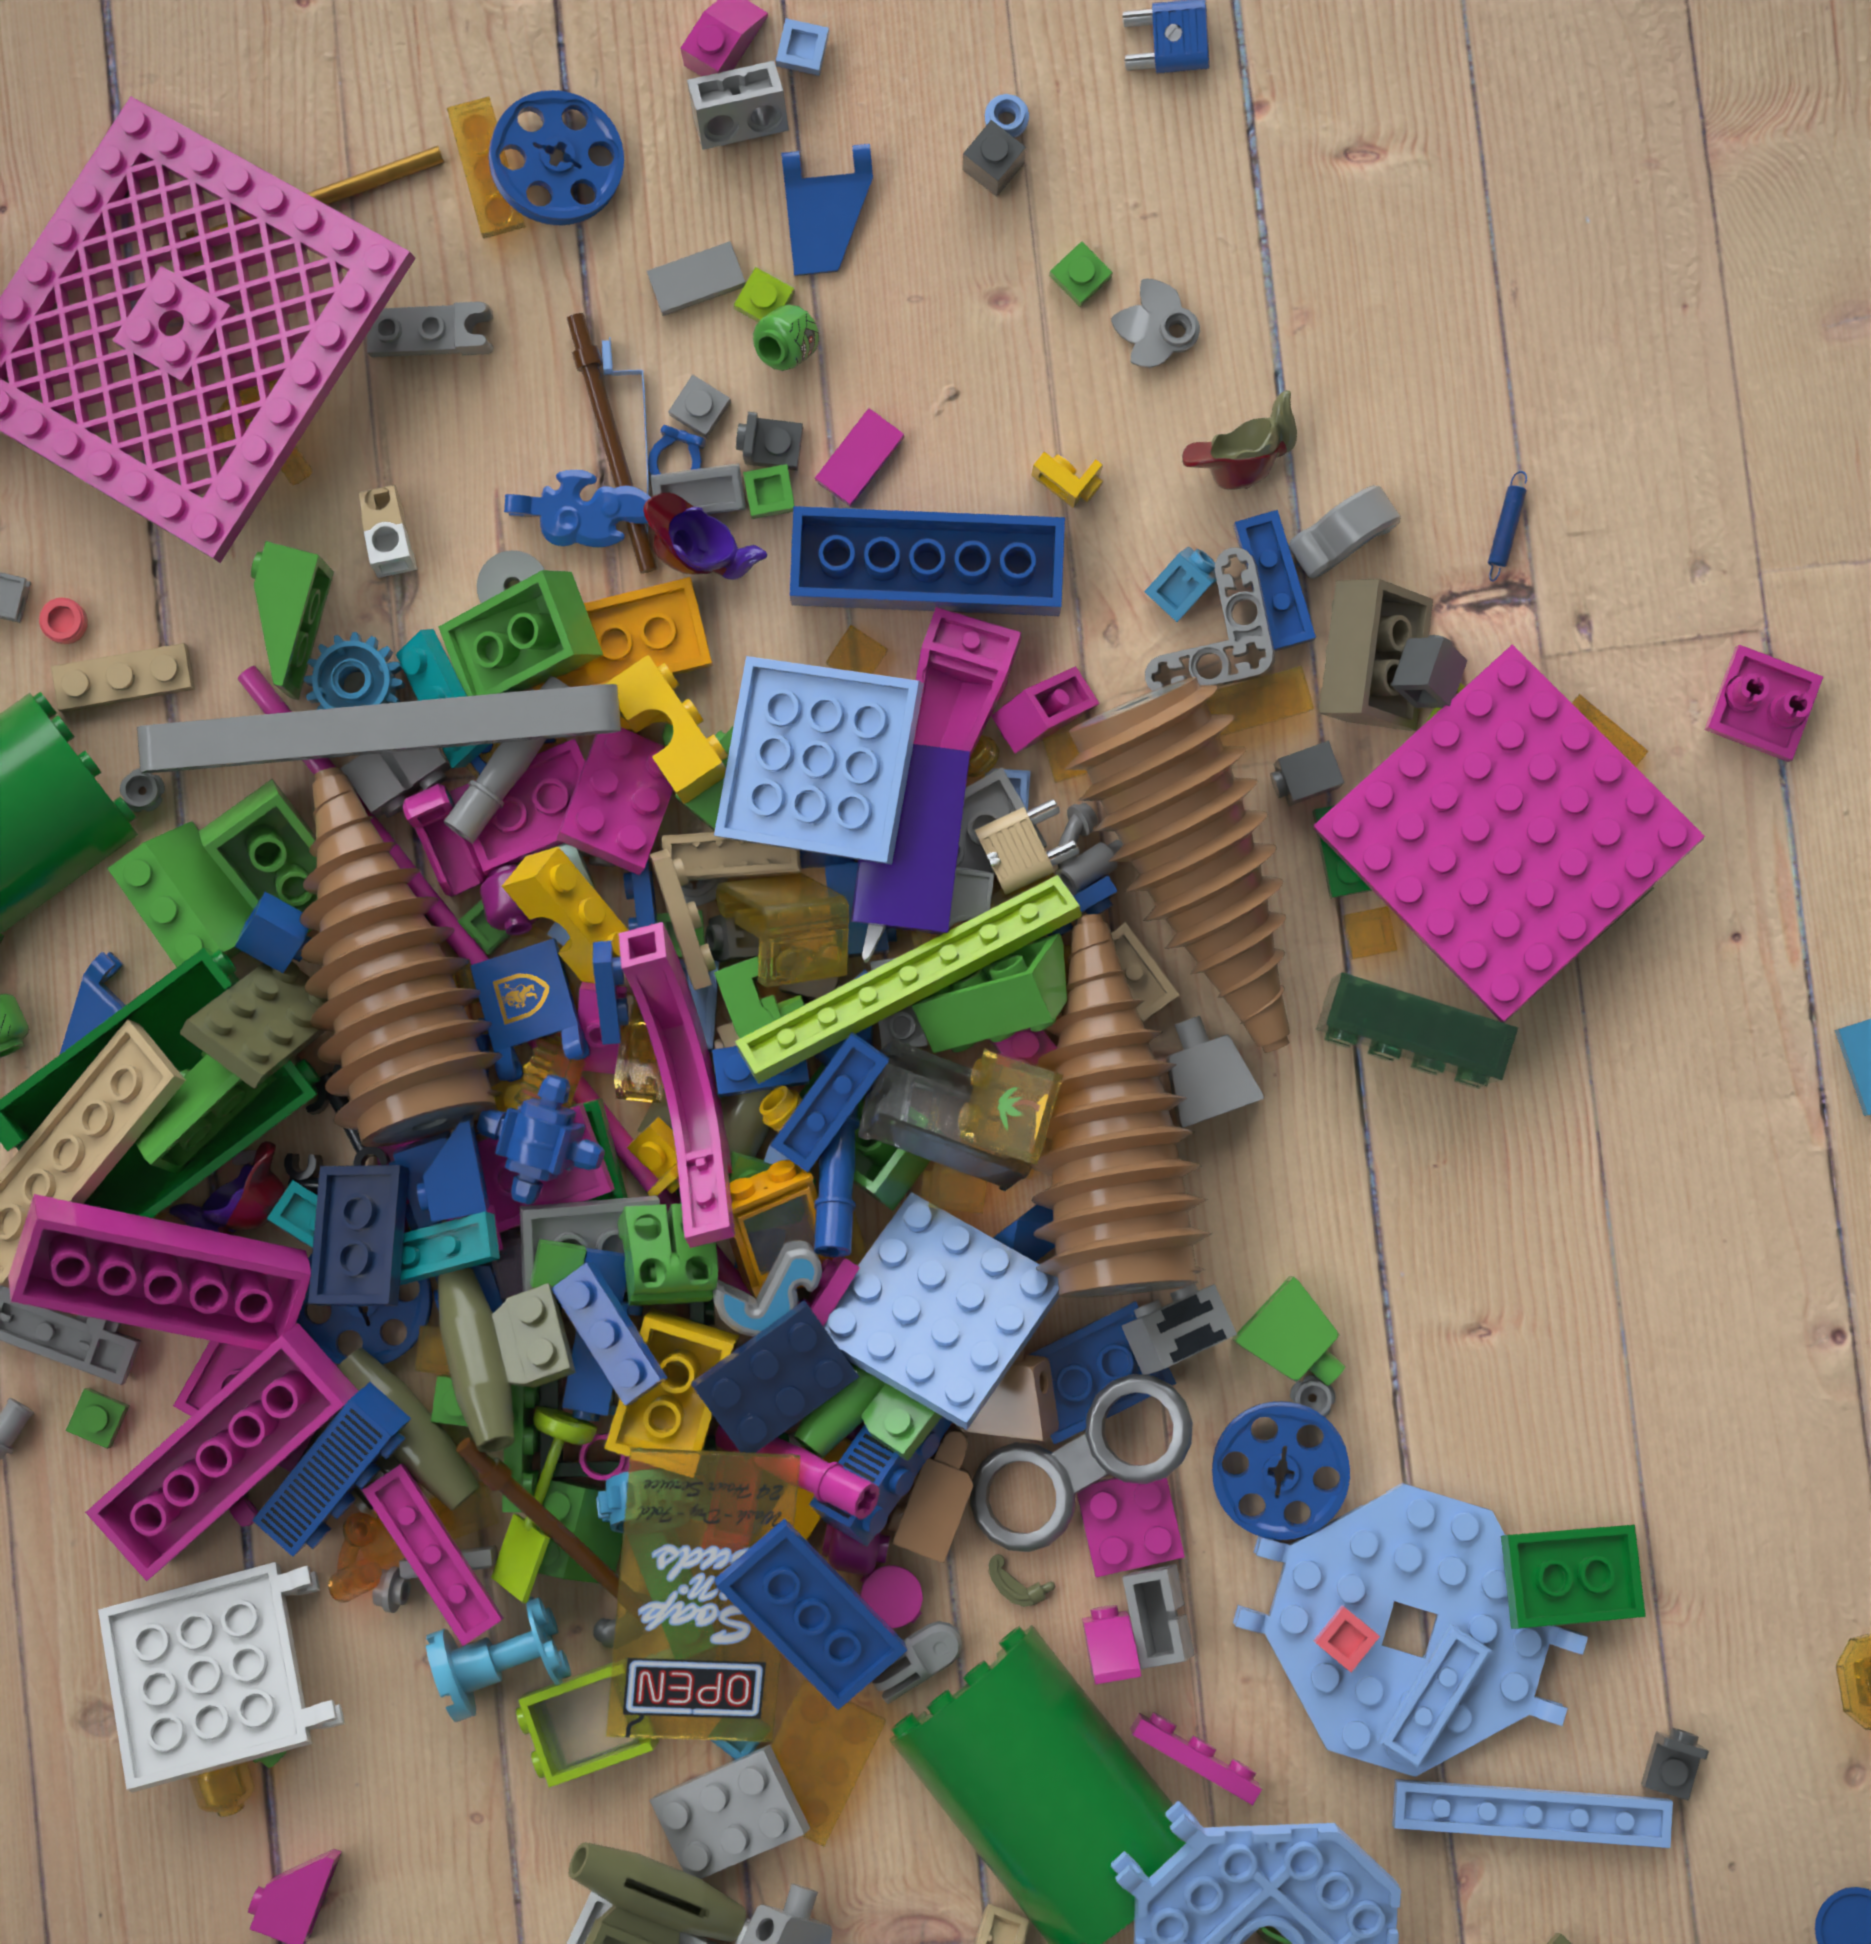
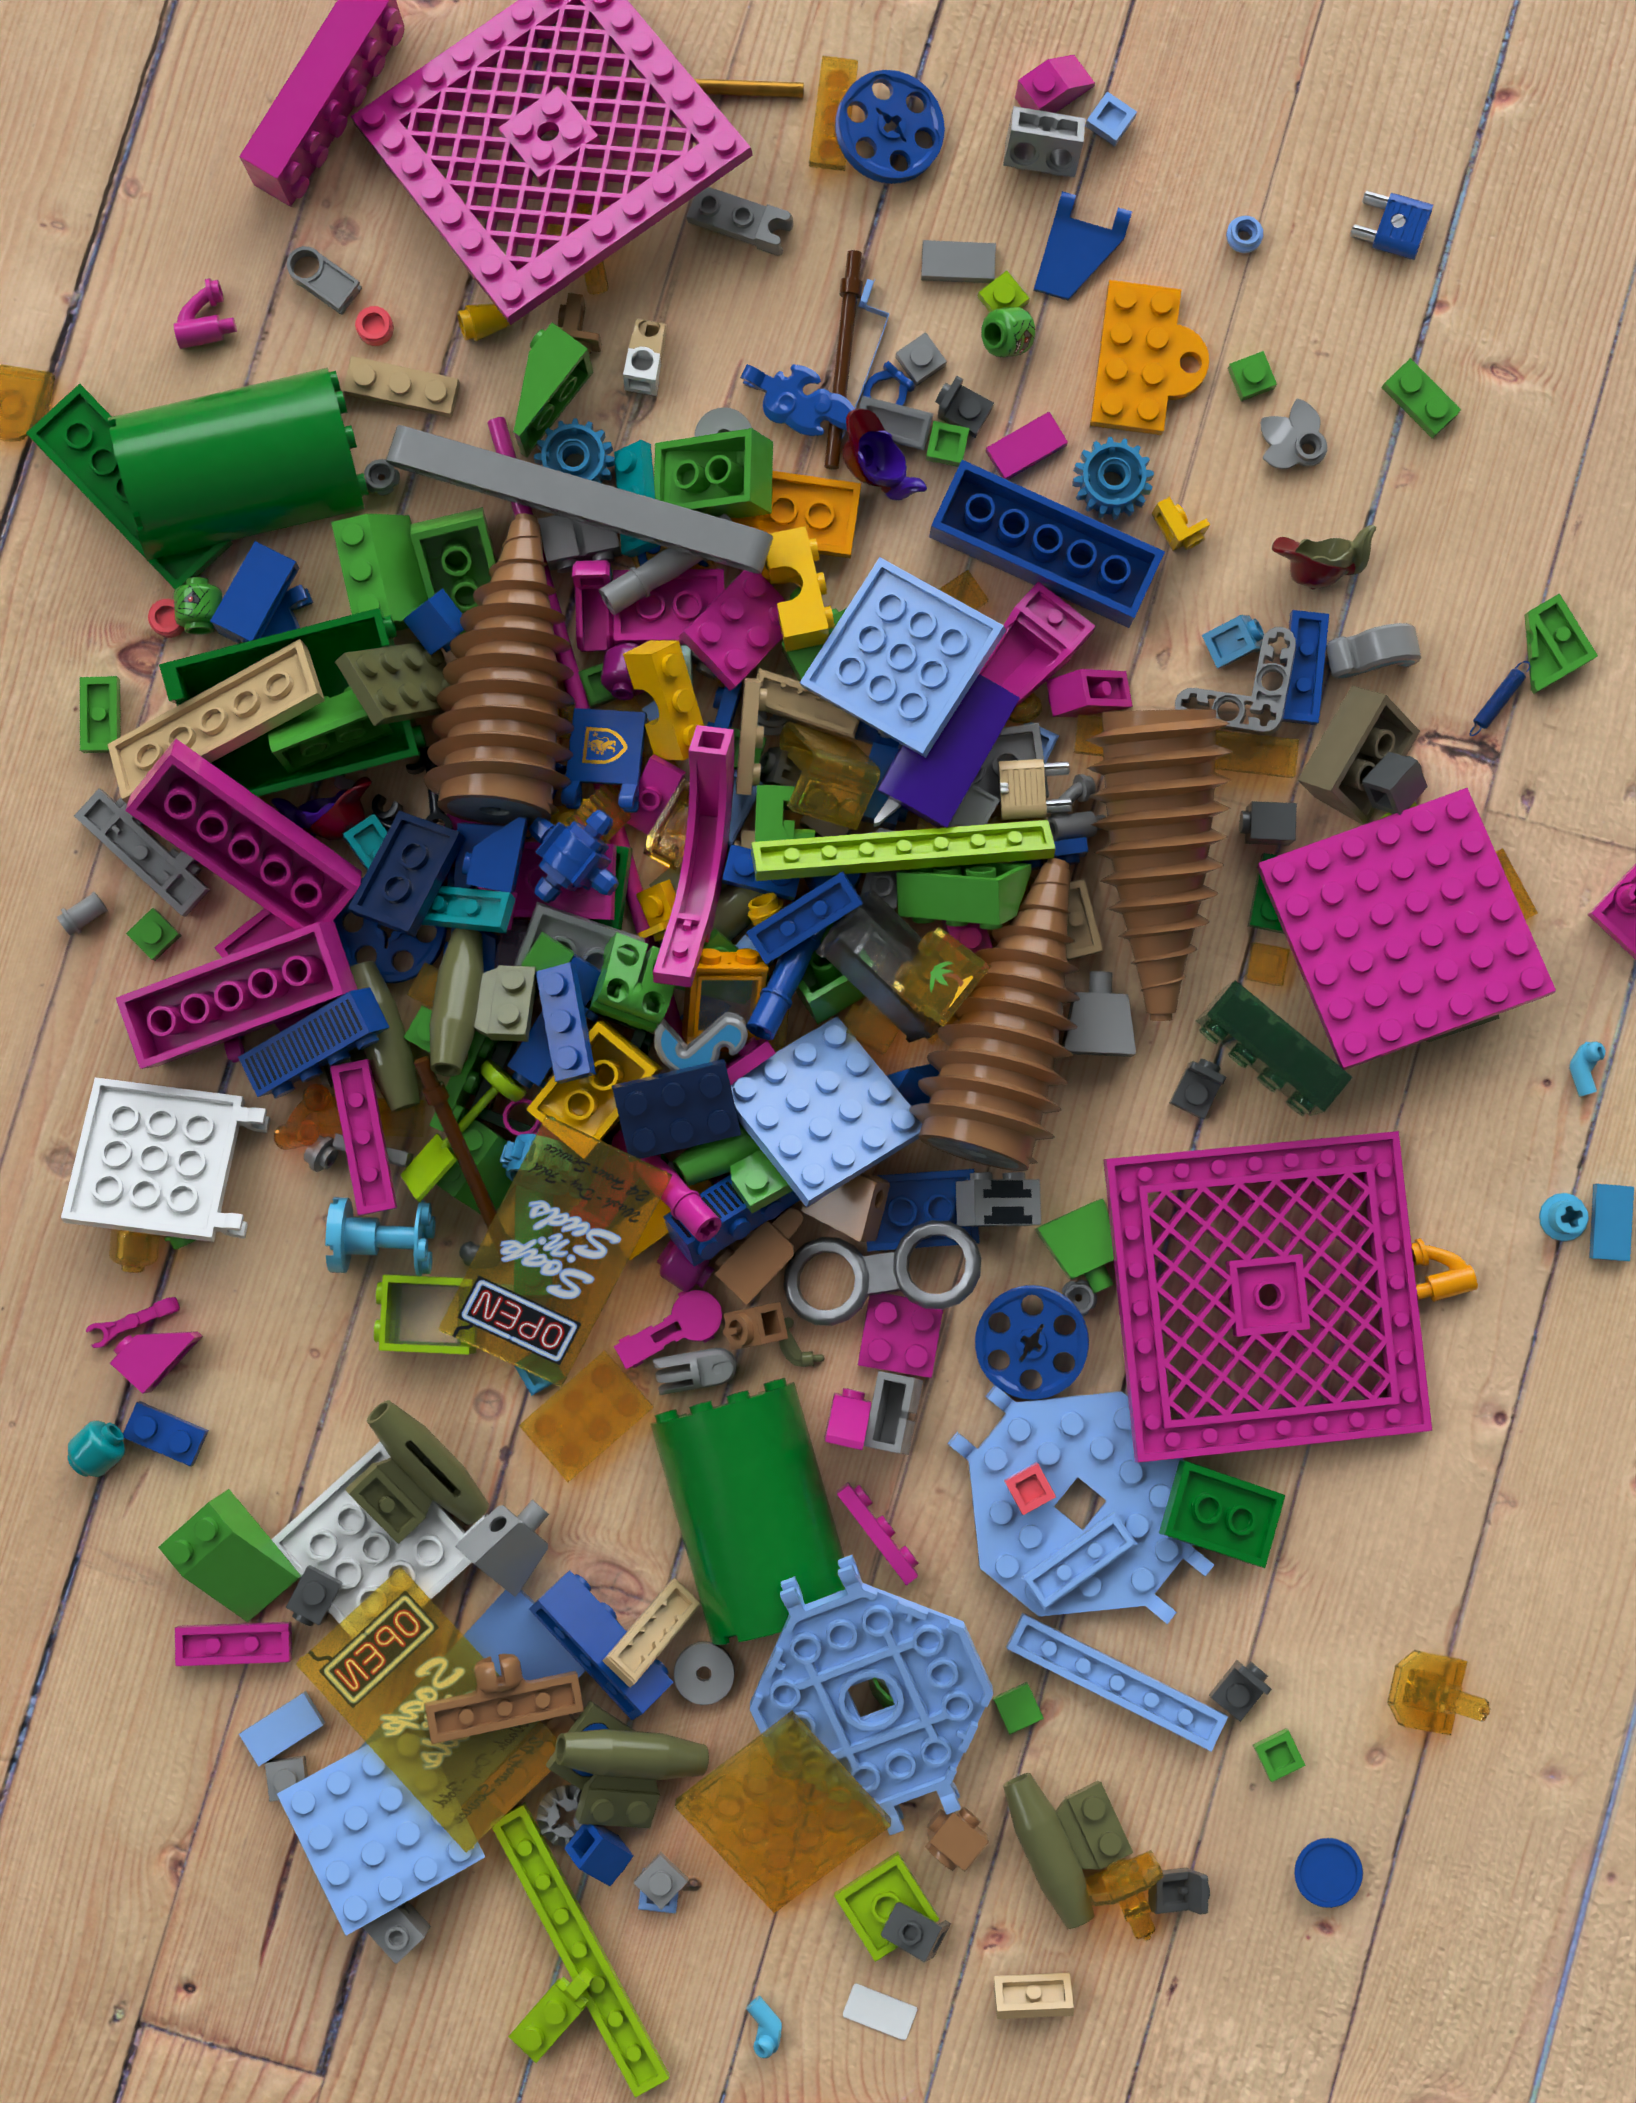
camera: 20 degrees right, 0 degrees up
(54, 986) = (254, 594): none -> blue piece
(181, 568) = (480, 321): none -> yellow cone
(236, 1886) = (113, 1329): none -> dark pink piece
(285, 523) = (571, 319): none -> medium nougat bracket
(611, 1009) = (675, 753): blue plate -> none
(730, 1813) = (507, 1427): light grey plate -> none
(810, 1614) = (630, 1299): blue plate -> none
(949, 303) = (1142, 358): none -> light orange plate
(962, 1582) = (755, 1326): none -> medium nougat brick
(976, 431) = (1118, 459): none -> dark azure gear
(994, 158) = (1222, 260): dark grey brick -> none
(1281, 222) = (1421, 398): none -> bright green plate
(1349, 1105) = (1198, 1088): none -> dark grey bracket
(1434, 1888) = (1018, 1708): none -> bright green tile
(1543, 439) = (1554, 643): none -> bright green wing
(1716, 1212) = (1442, 1285): none -> light orange plant
(1727, 1362) = (1396, 1301): none -> dark pink plate
(1746, 1820) = (1279, 1755): none -> bright green plate
(1768, 900) = (1582, 1065): none -> medium azure arm
(1816, 1081) = (1563, 1217): none -> medium azure piece

